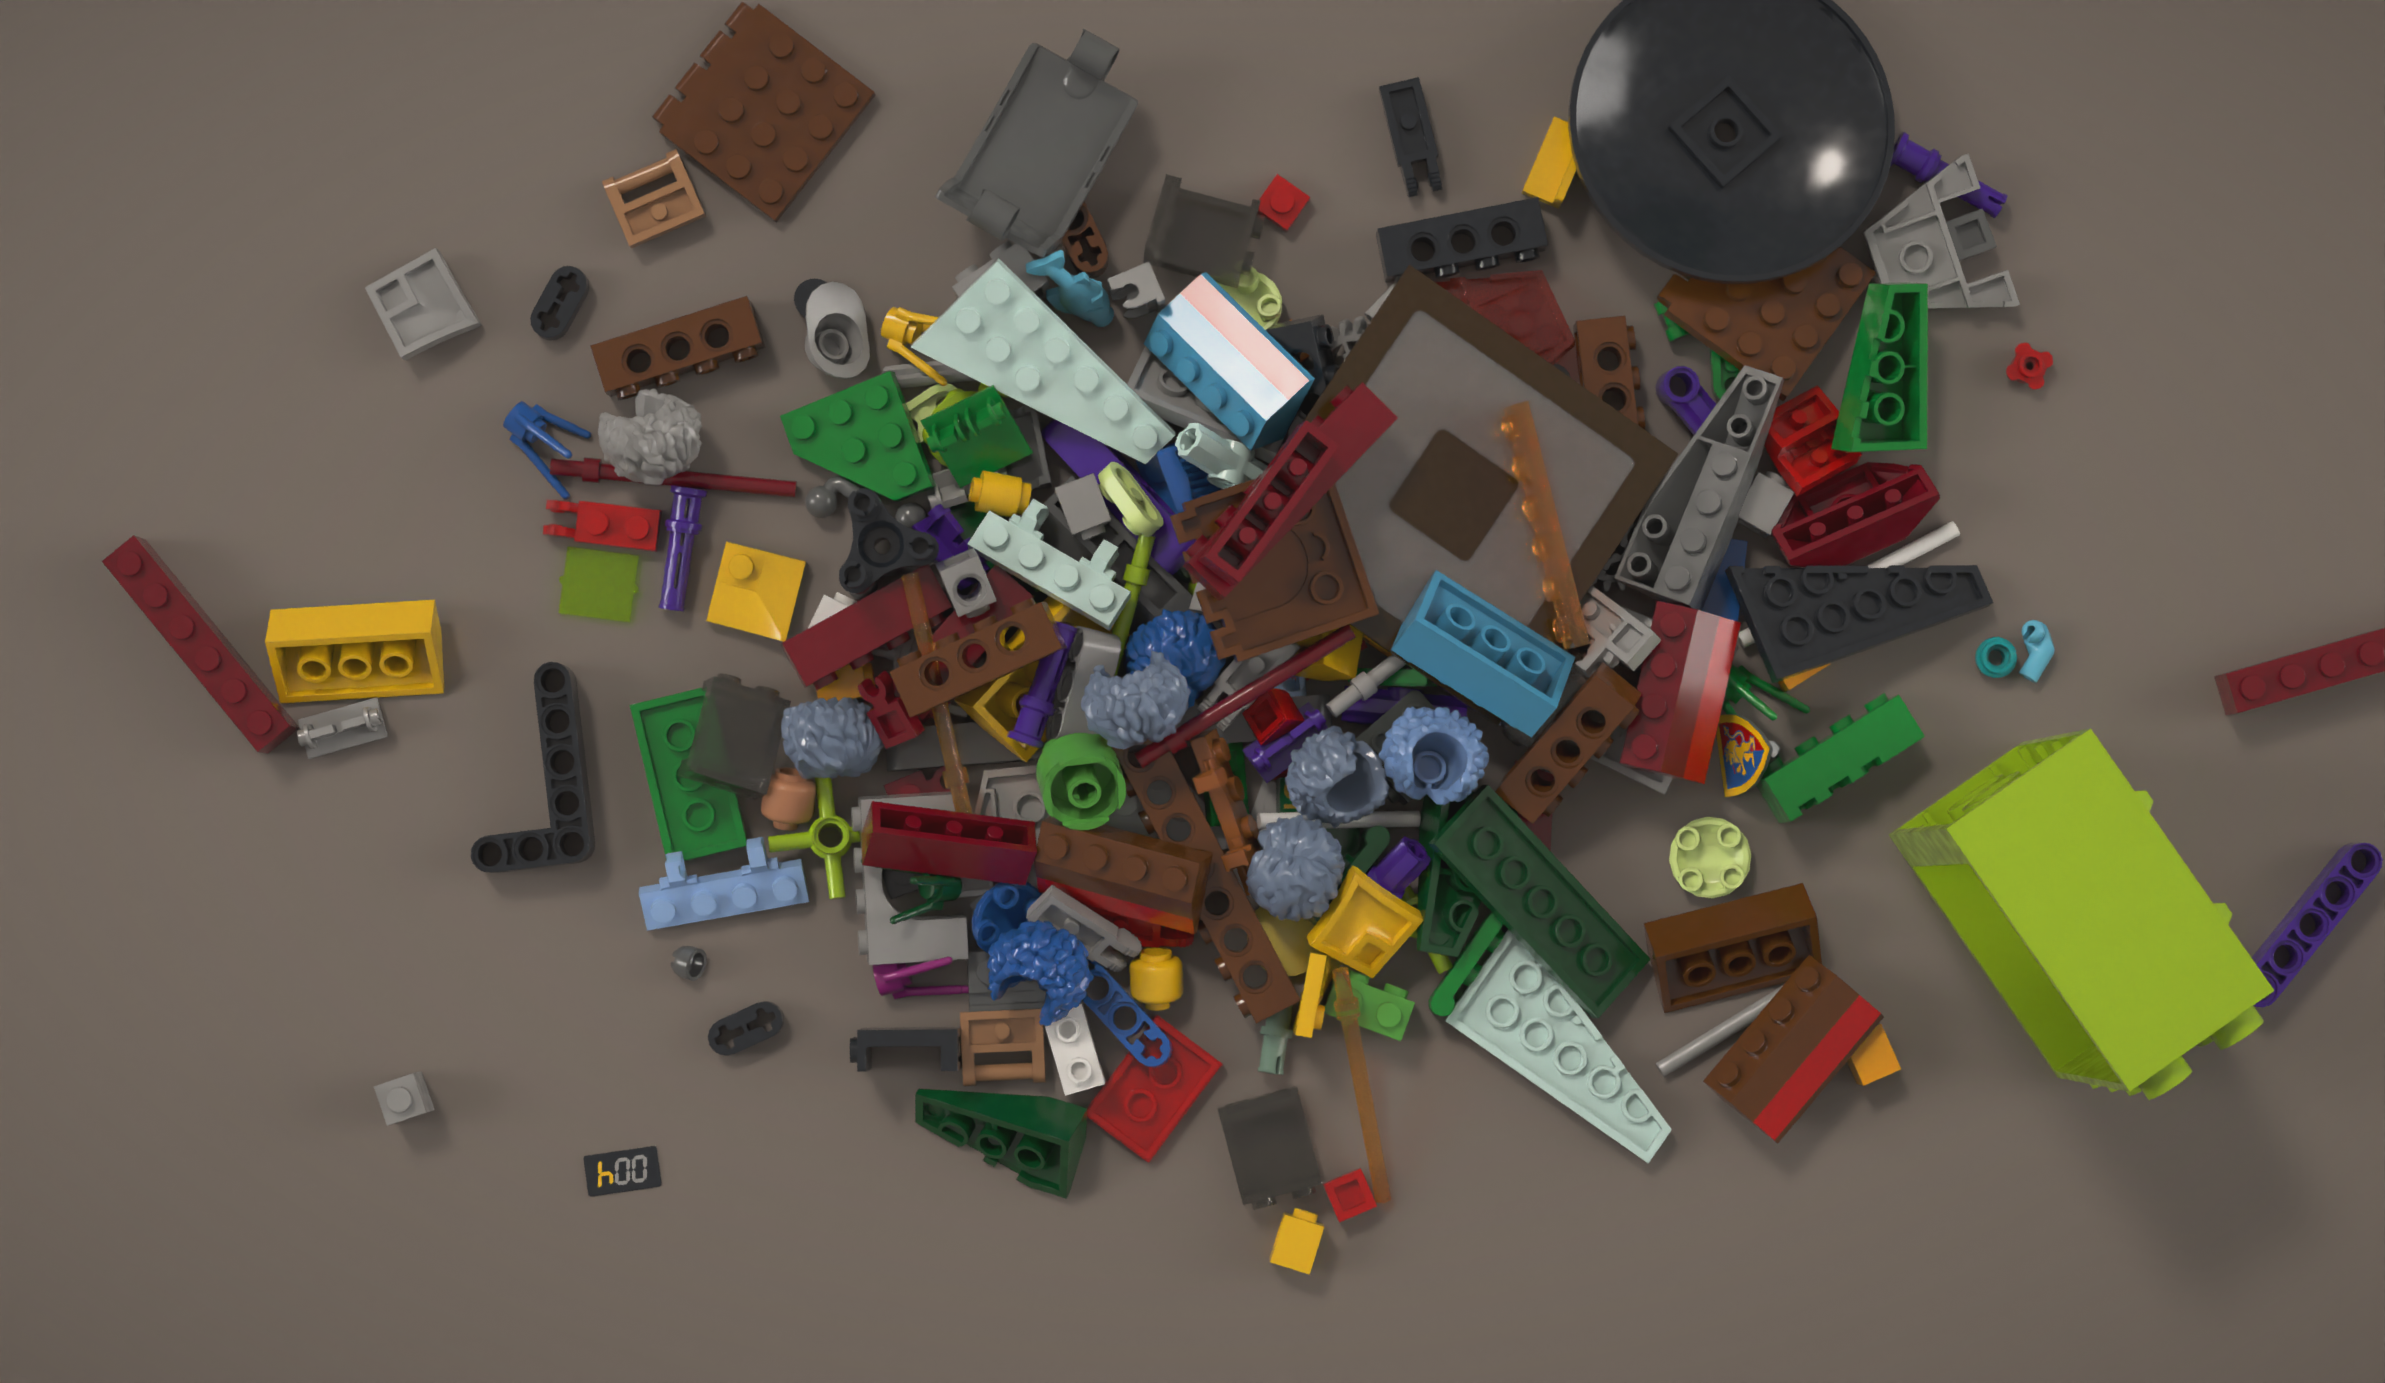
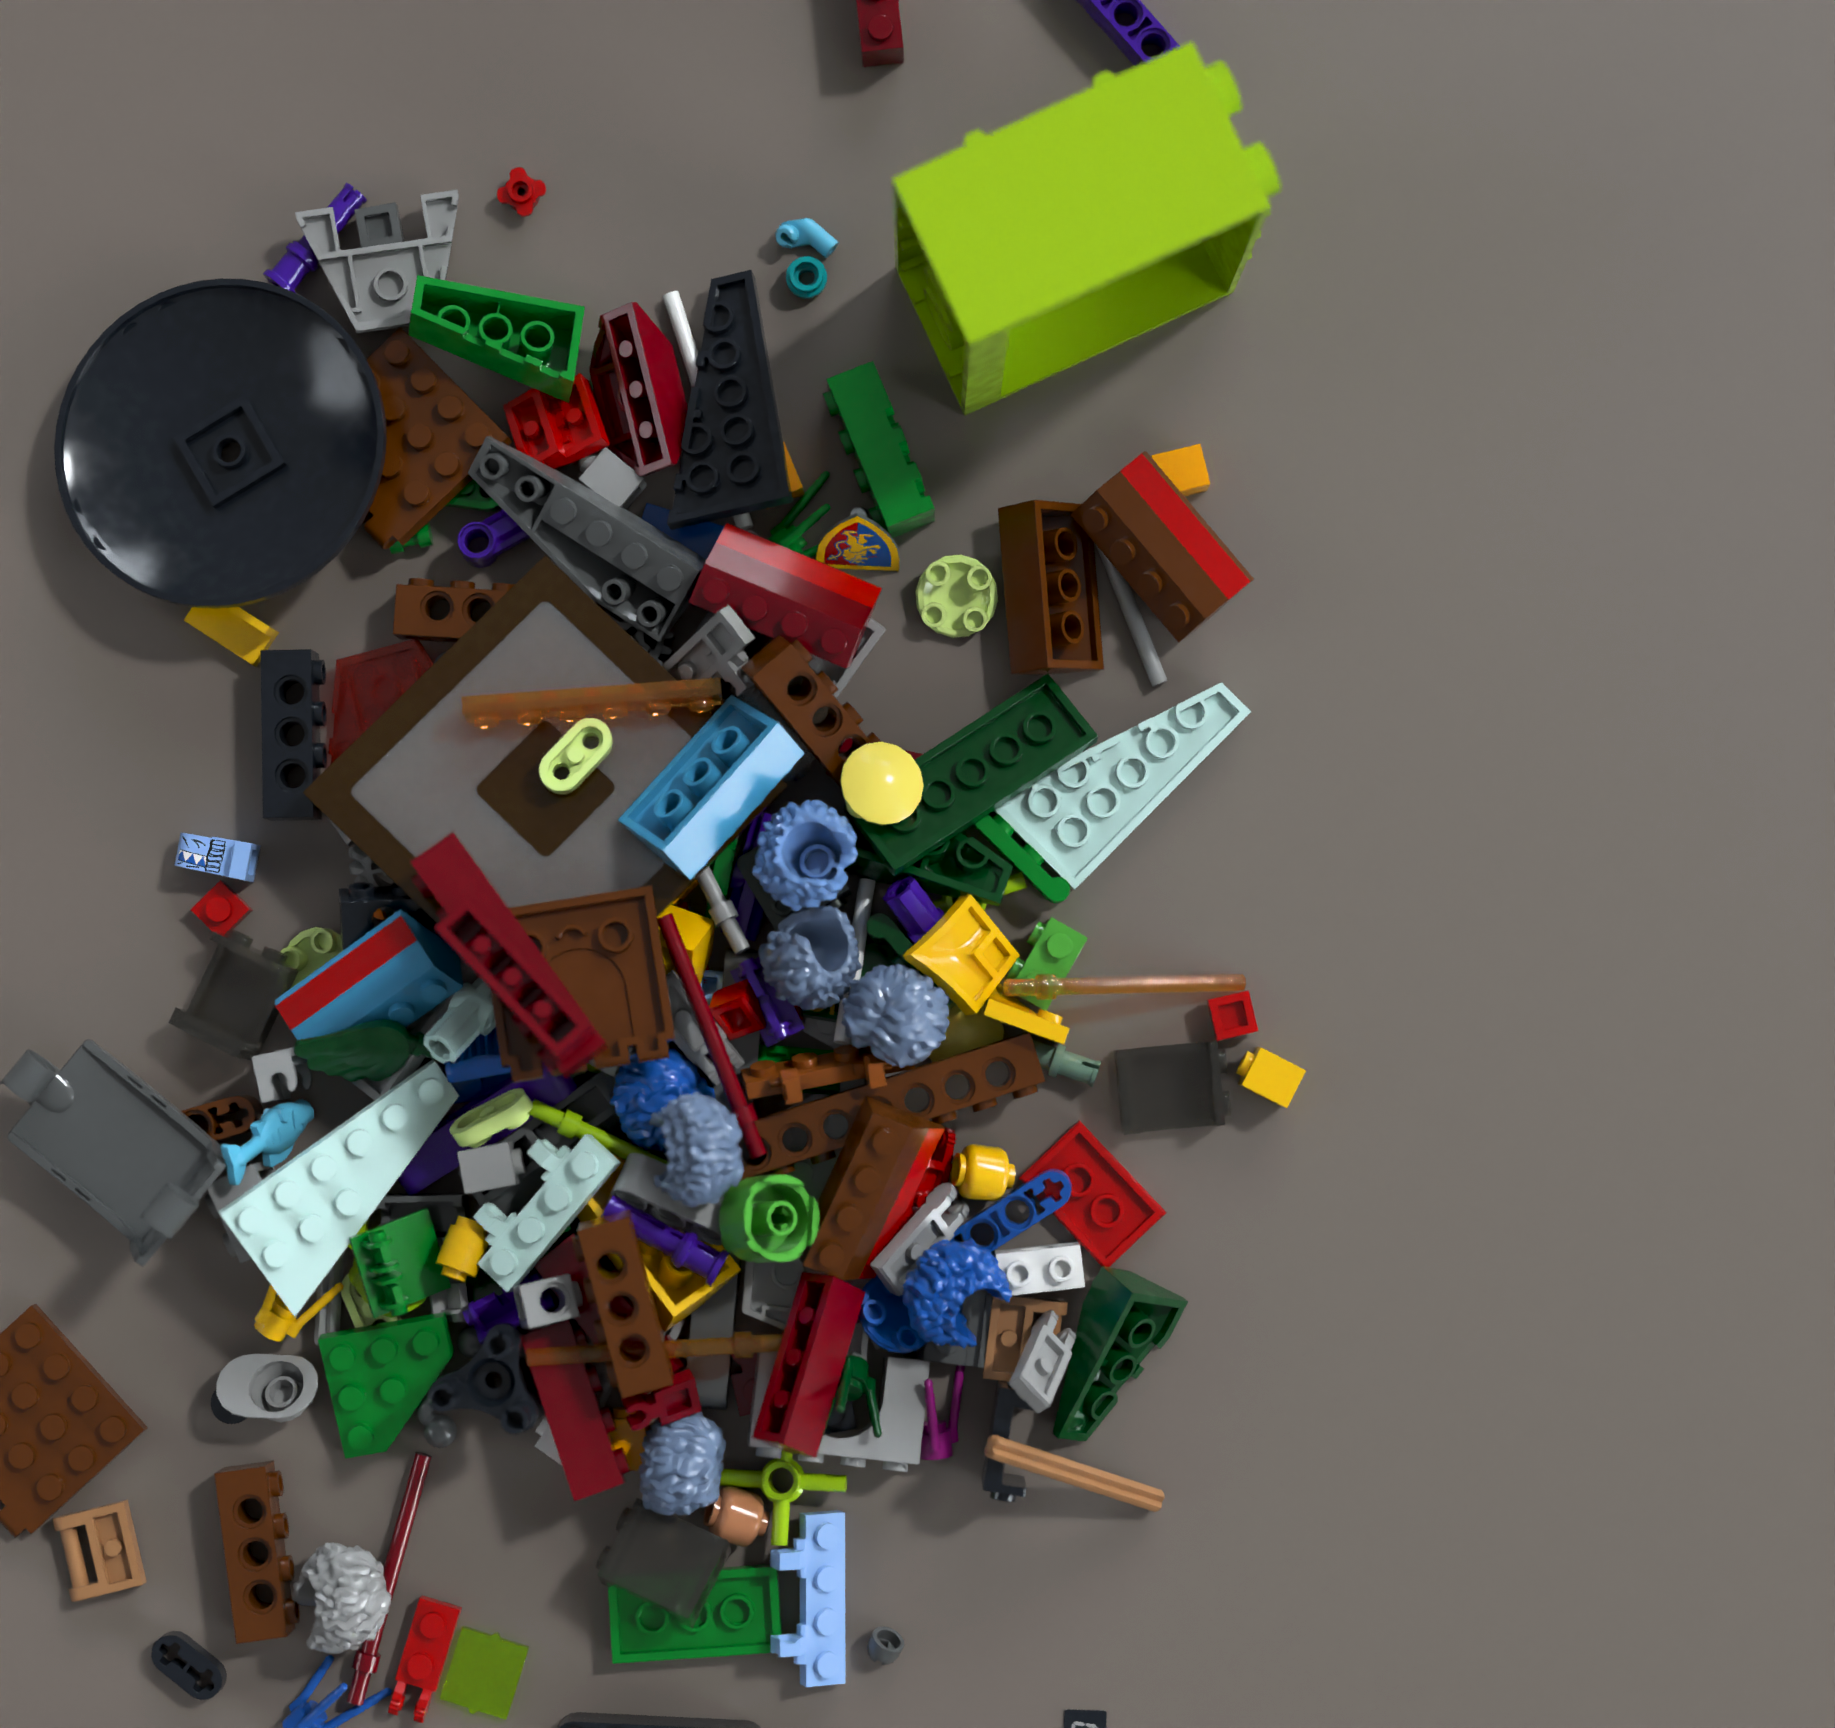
camera: 75 degrees left, 0 degrees up
(672, 597) = (511, 1600): dark purple pin -> none
(750, 1037) = (952, 1600): black beam -> none
(756, 591) = (519, 1513): yellow plate -> none
(886, 1115) = (1073, 1473): none -> medium nougat axle
(987, 1066) = (1042, 1362): none -> light grey hinge
(1172, 366) = (362, 1051): none -> dark green animal
(1332, 190) = (218, 856): none -> light blue leg
(1410, 131) = (172, 767): black hinge -> none
(1490, 516) = (572, 754): none -> yellowish green plate
(1515, 816) = (881, 783): none -> light yellow dish

